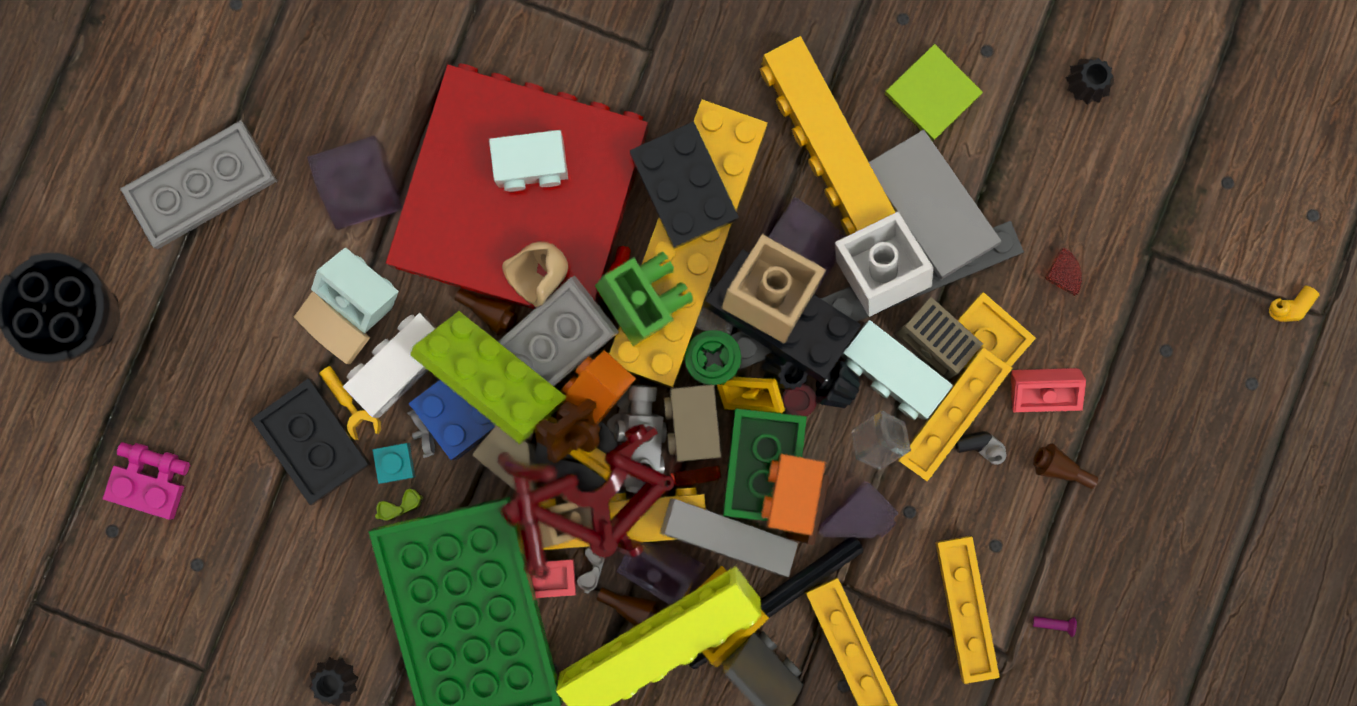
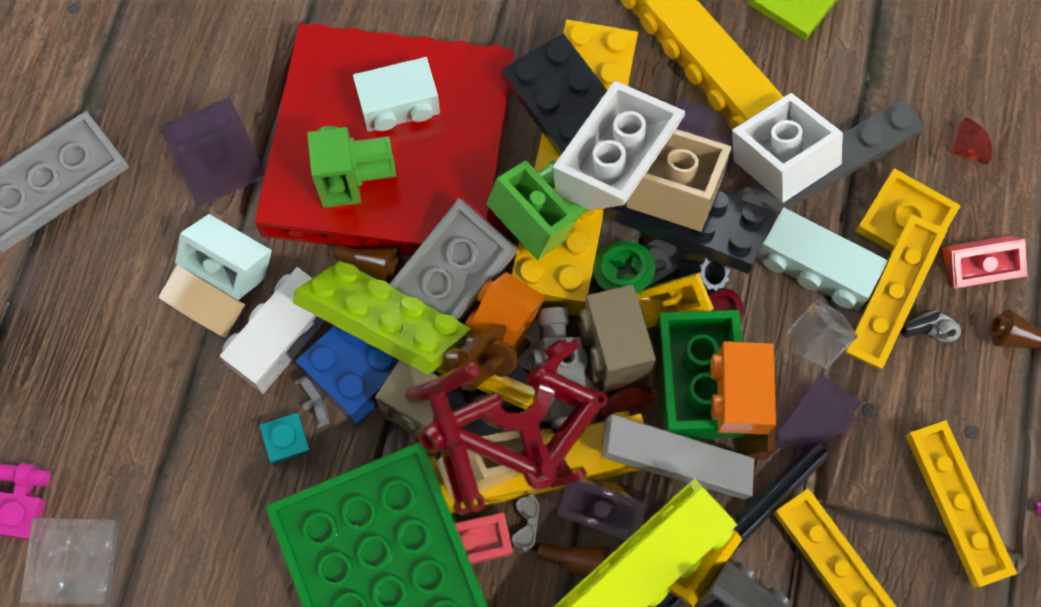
camera: 10 degrees left, 15 degrees down
(202, 545) = (70, 562): none -> clear plate
(310, 441) = (188, 427): black plate -> none
(345, 399) = (223, 377): yellow piece -> none
(387, 511) = (308, 477): lime piece -> none
(465, 230) = (343, 164): none -> bright green brick
(523, 275) = (404, 199): tan hair -> none
(717, 261) = (614, 148): none -> white slope
(838, 388) = (763, 284): black piece -> none
(934, 204) = (829, 88): light grey tile -> none
(939, 339) = (861, 218): dark tan panel -> none

